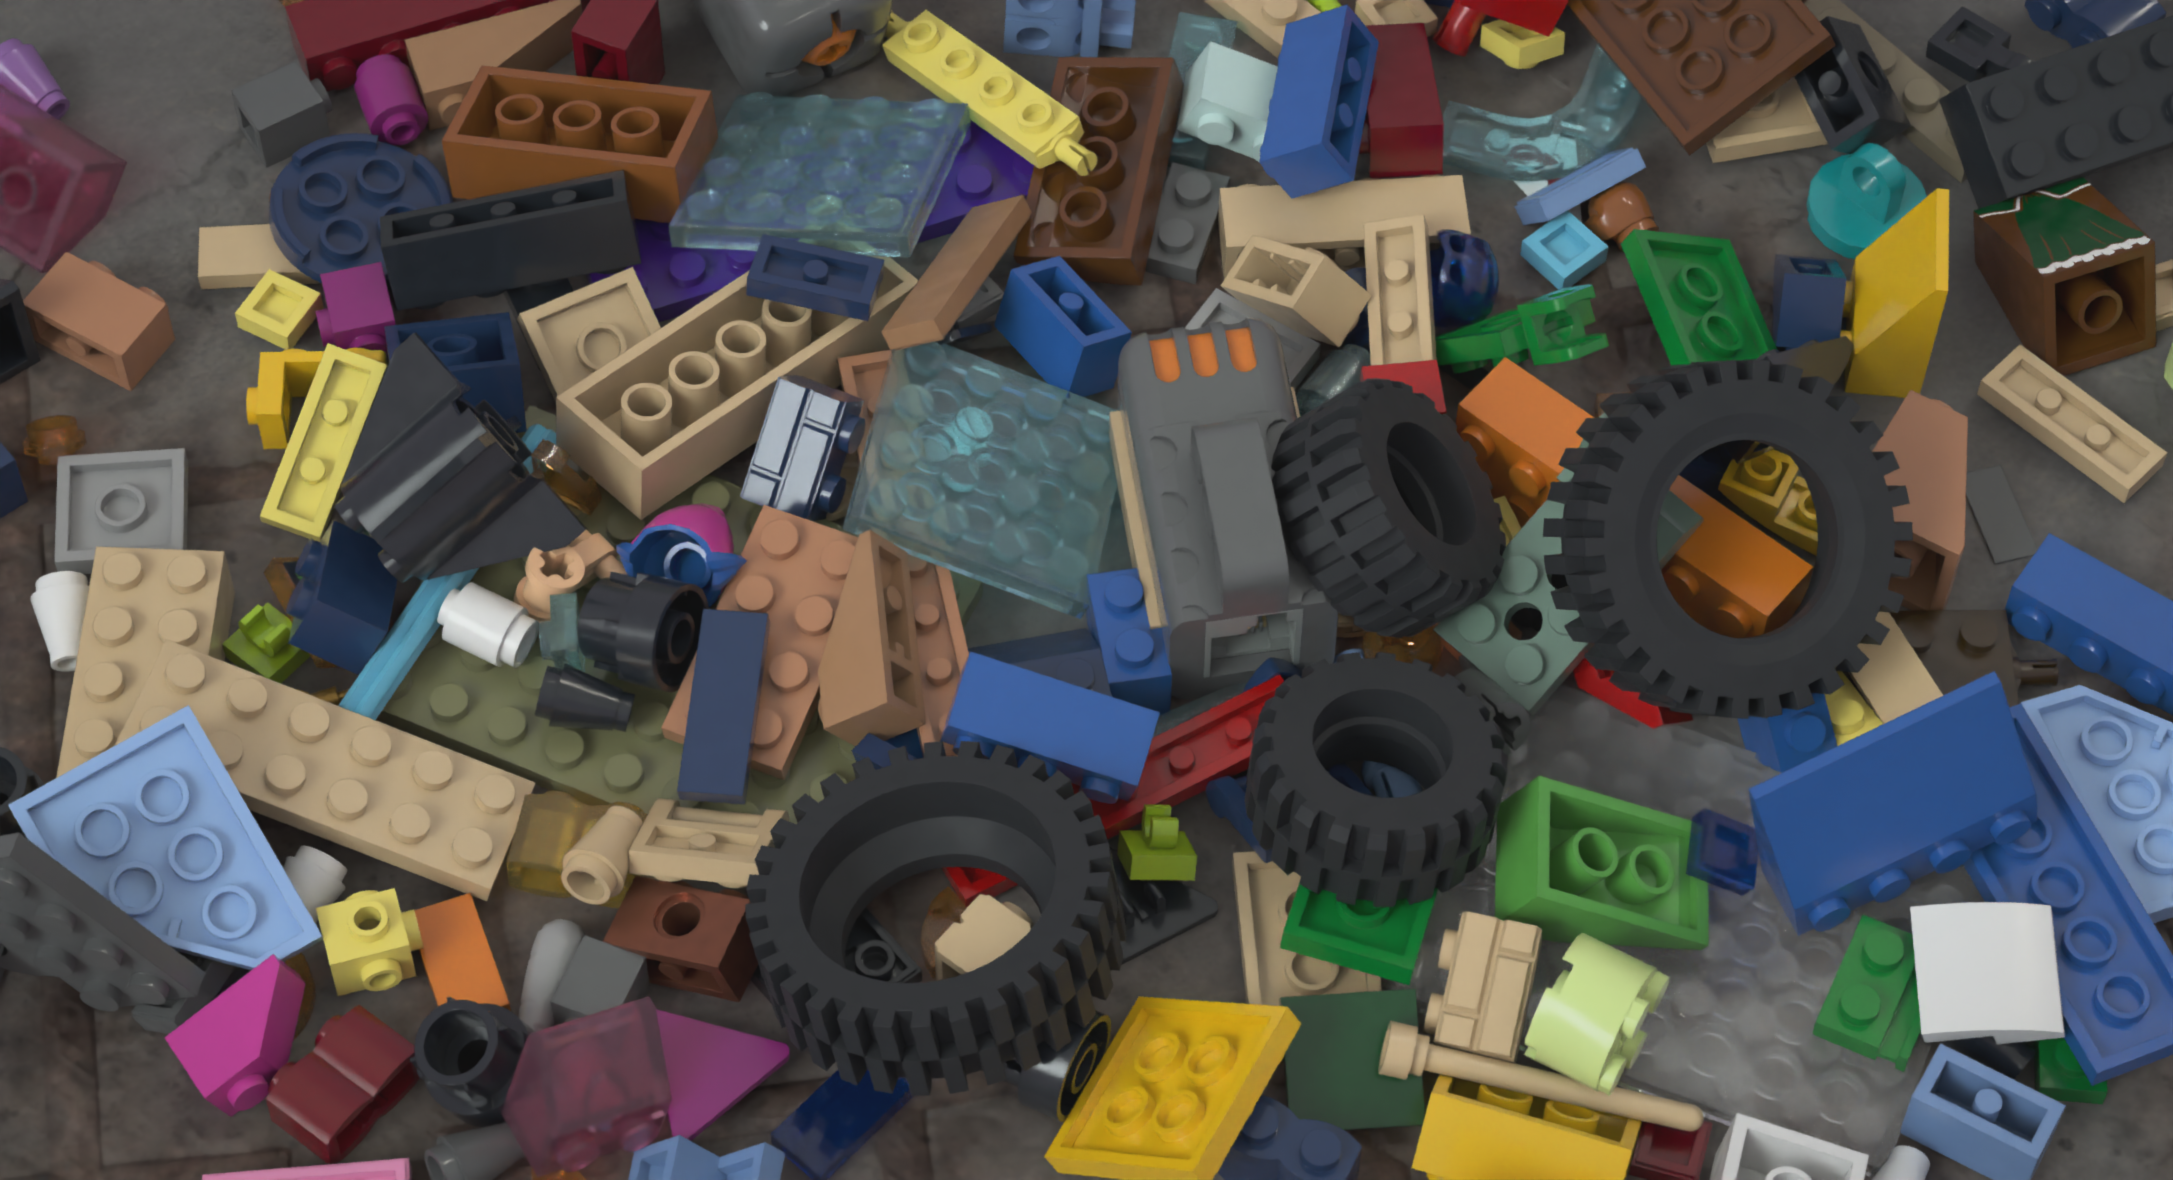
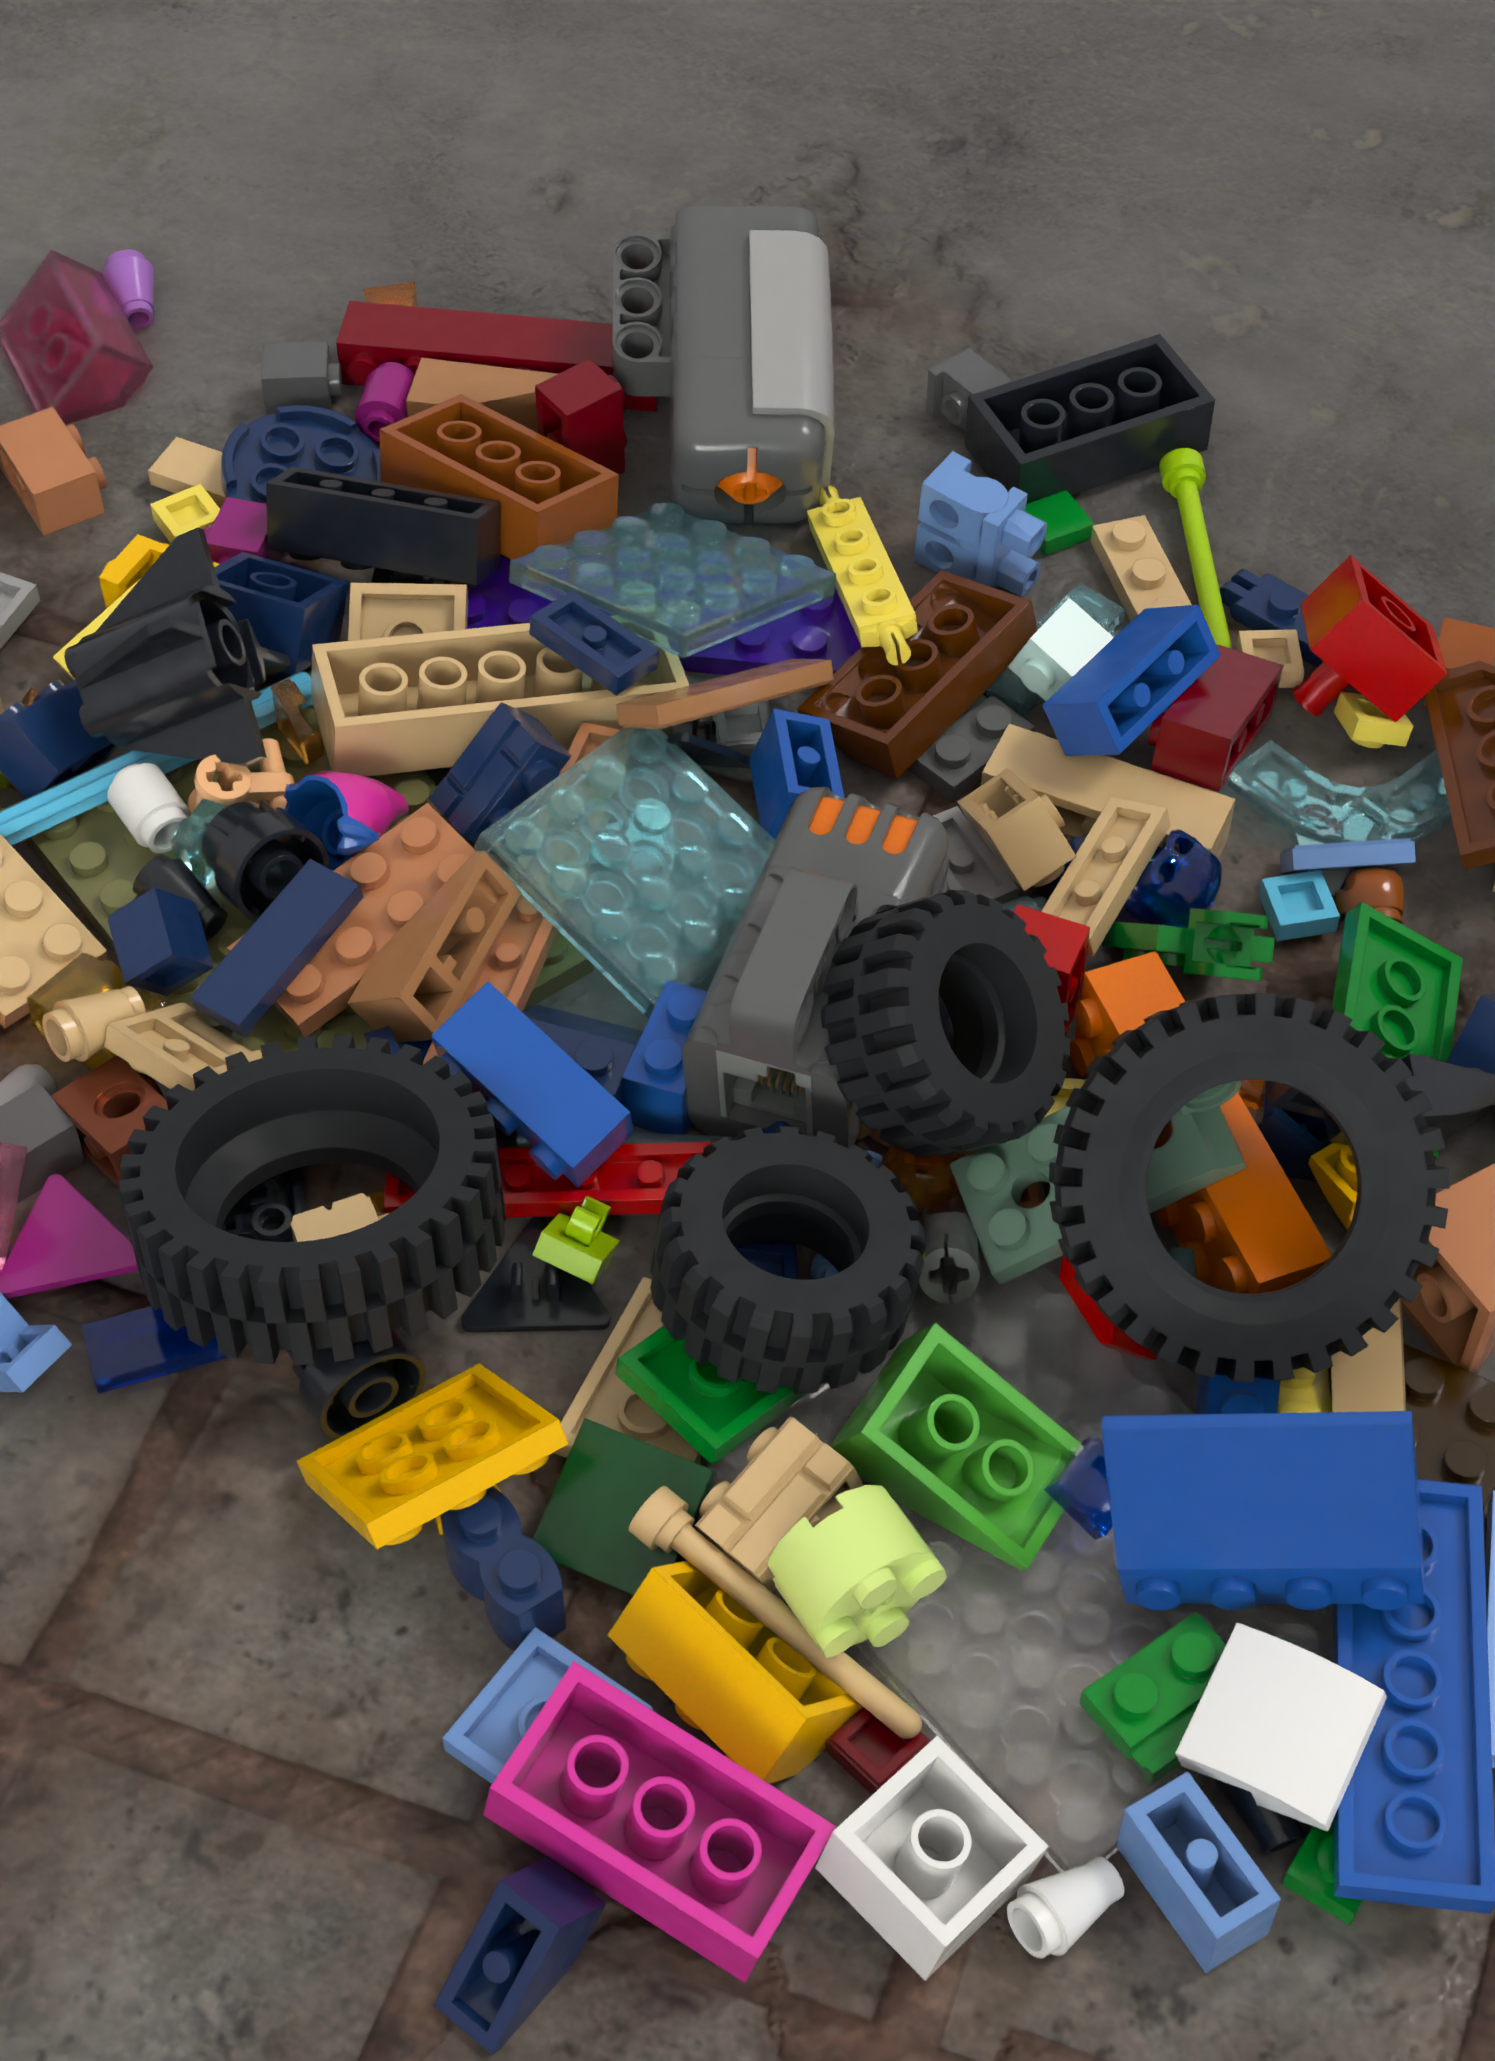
camera: 30 degrees right, 5 degrees down
(606, 751) = (160, 942): none -> dark blue panel

